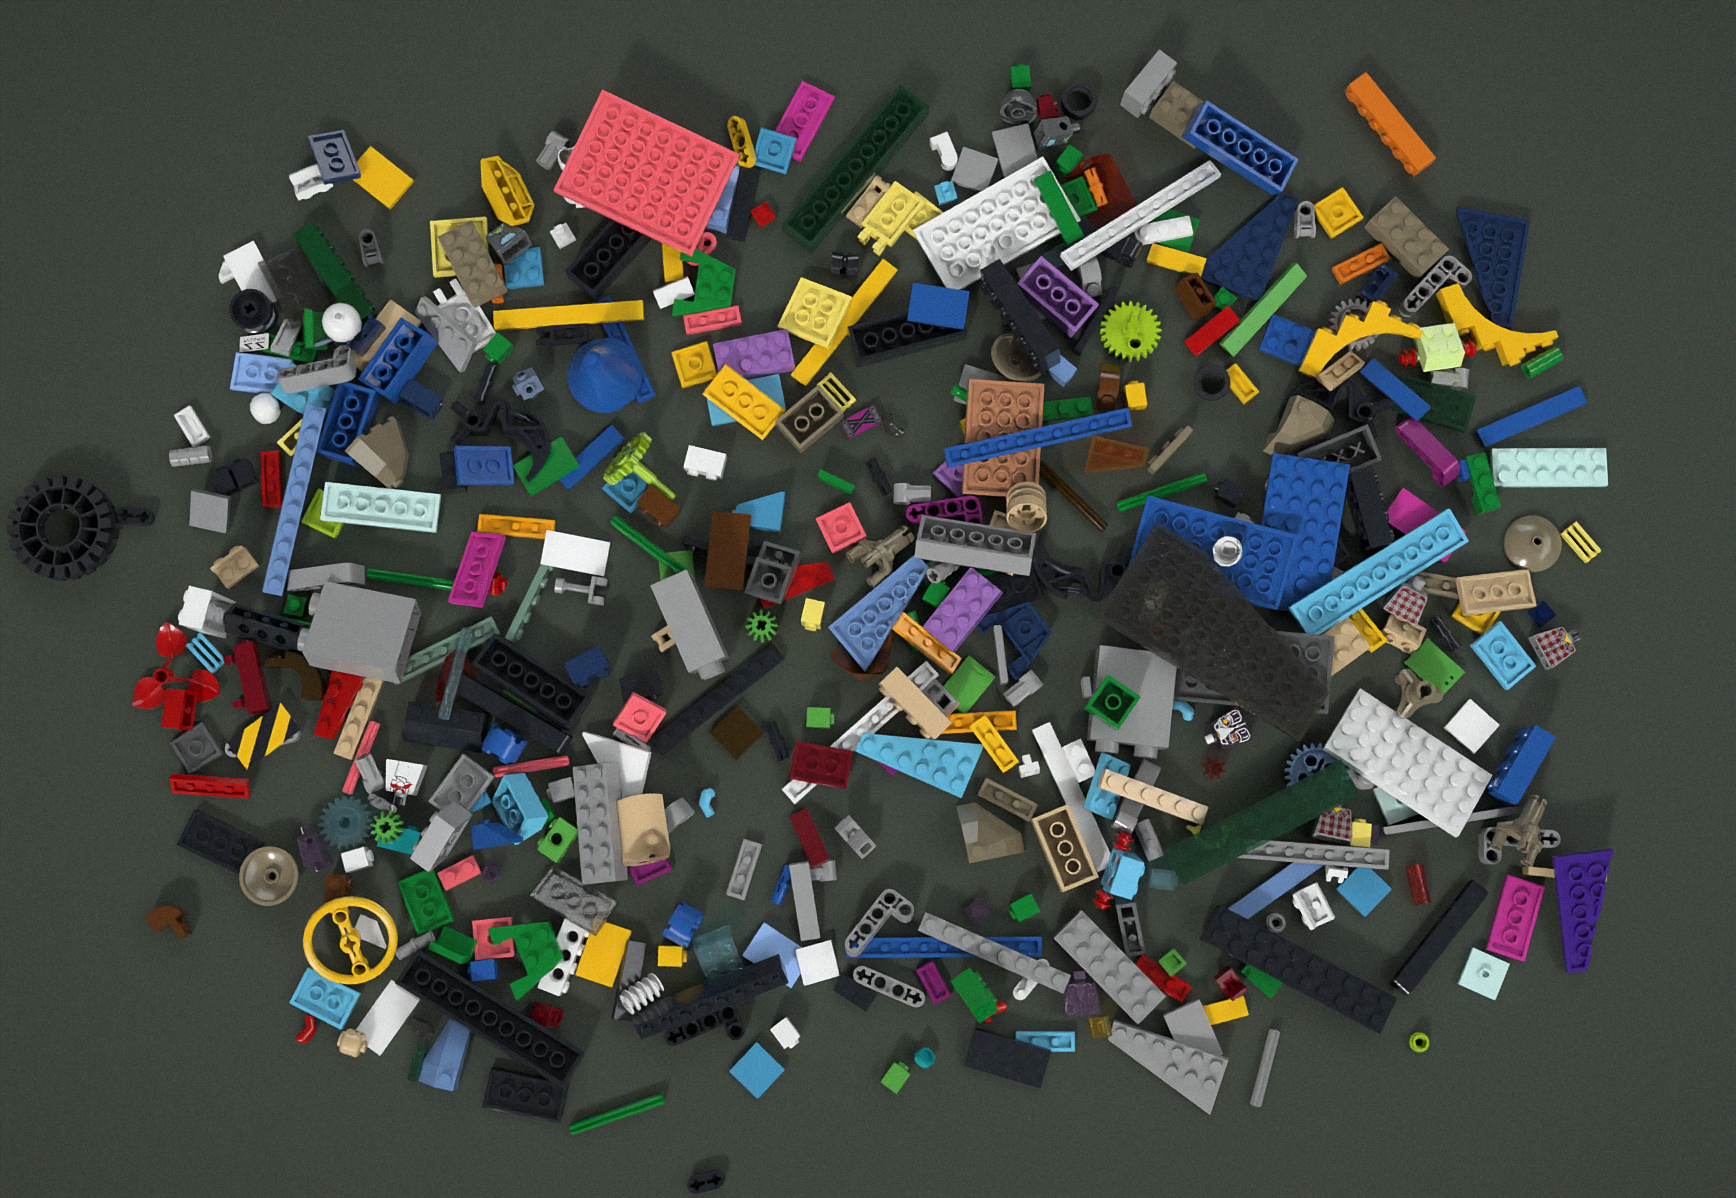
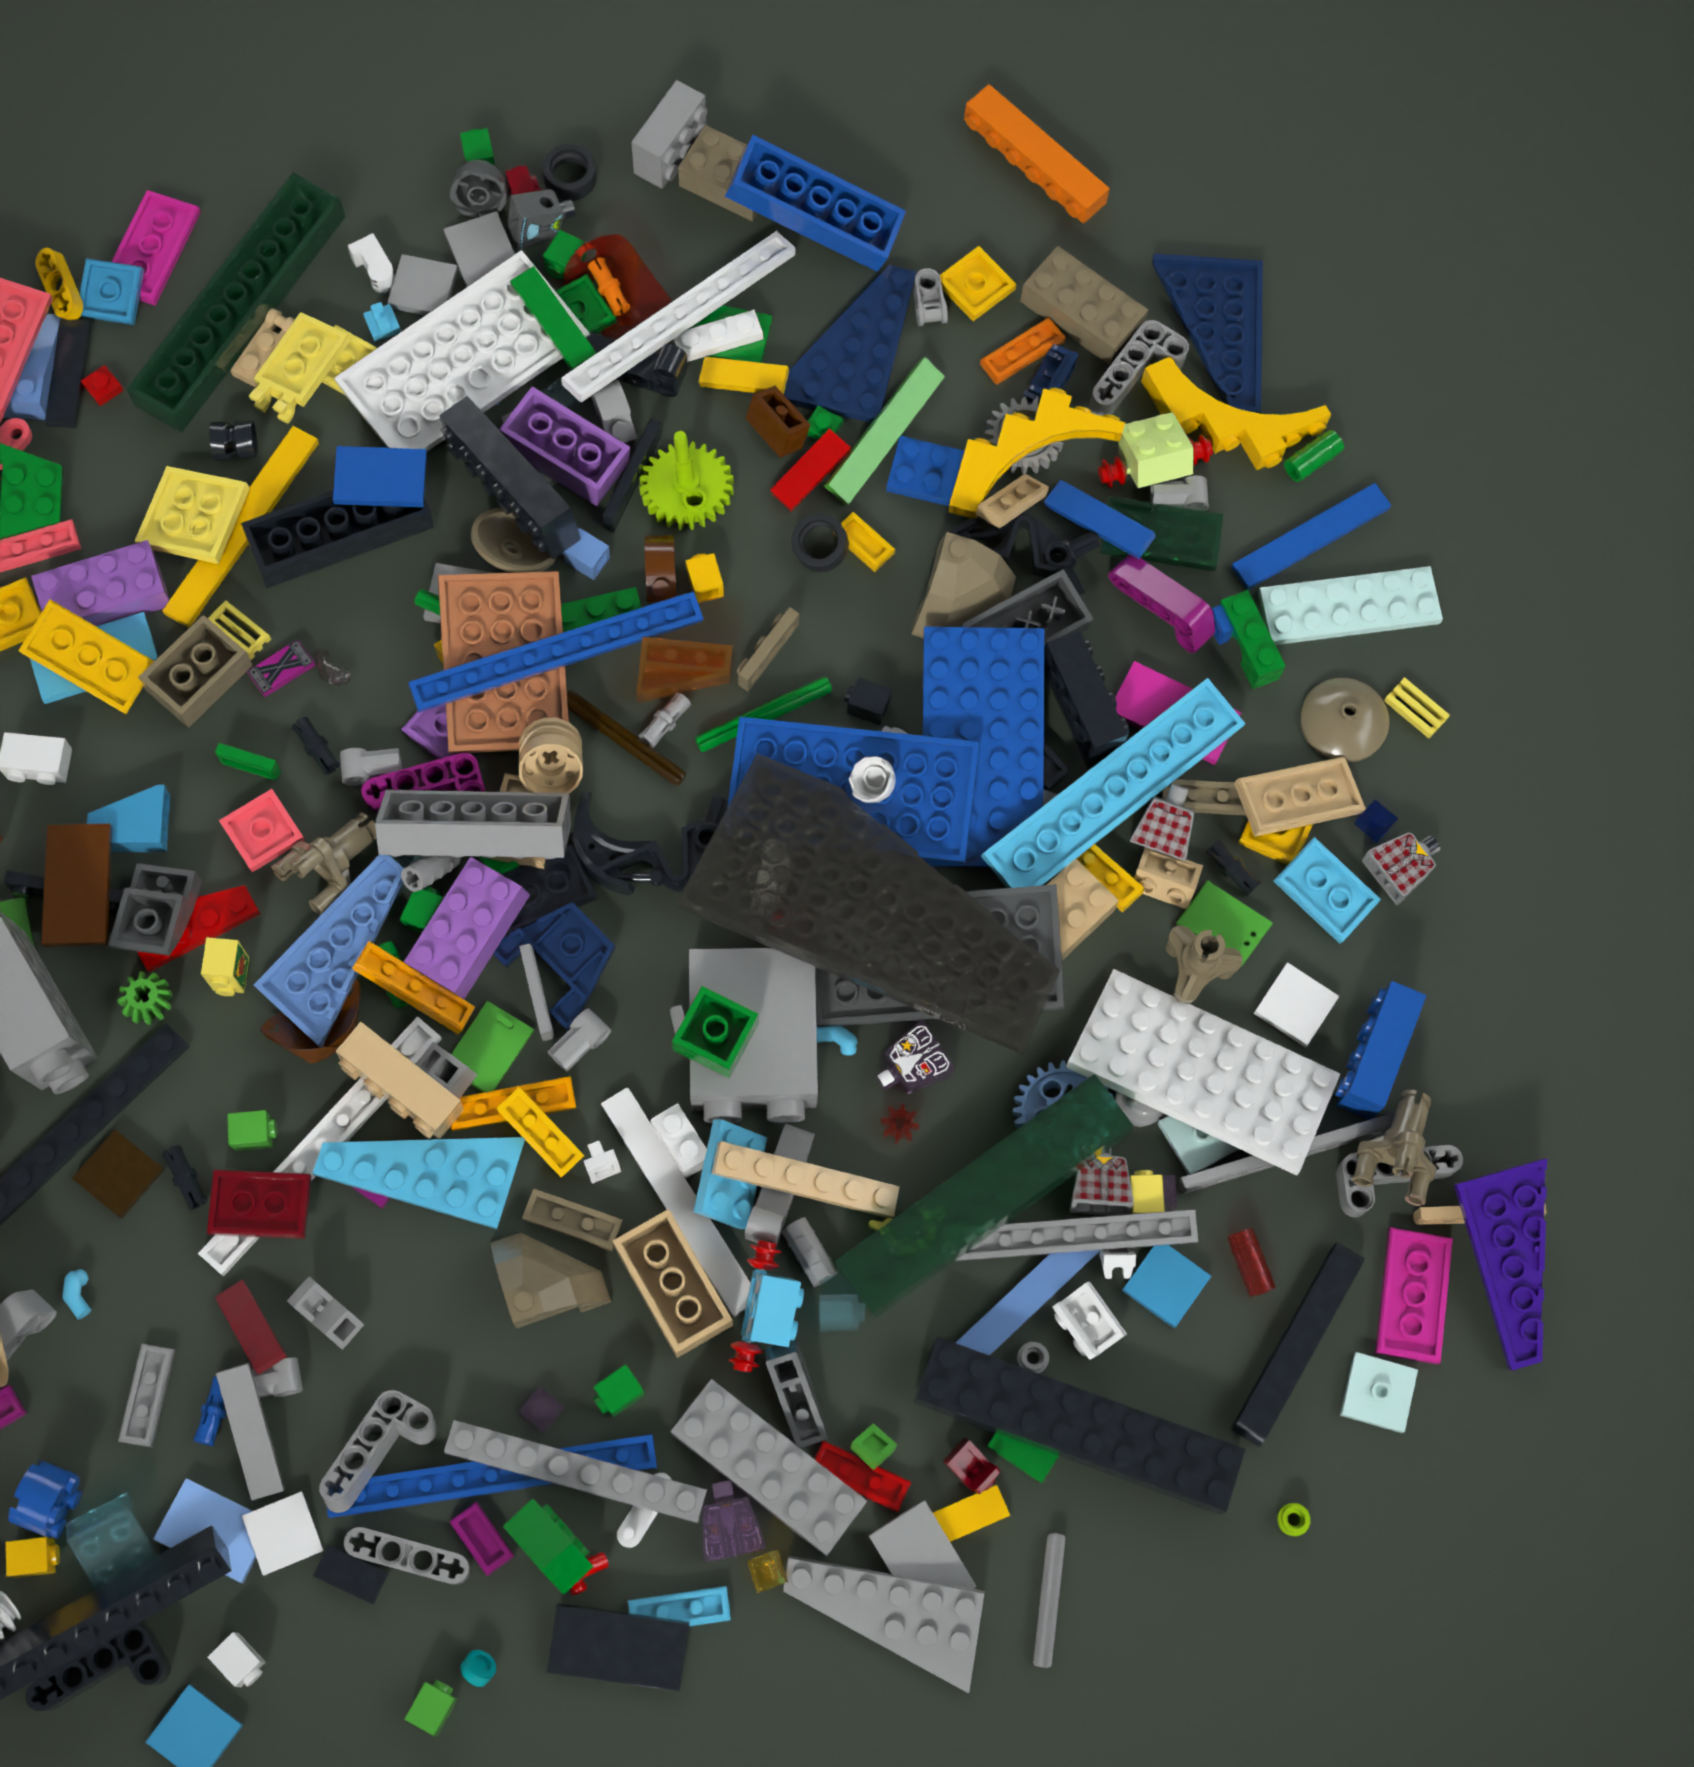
camera: 15 degrees left, 10 degrees down
(1098, 488) = (665, 719): none -> light grey pin

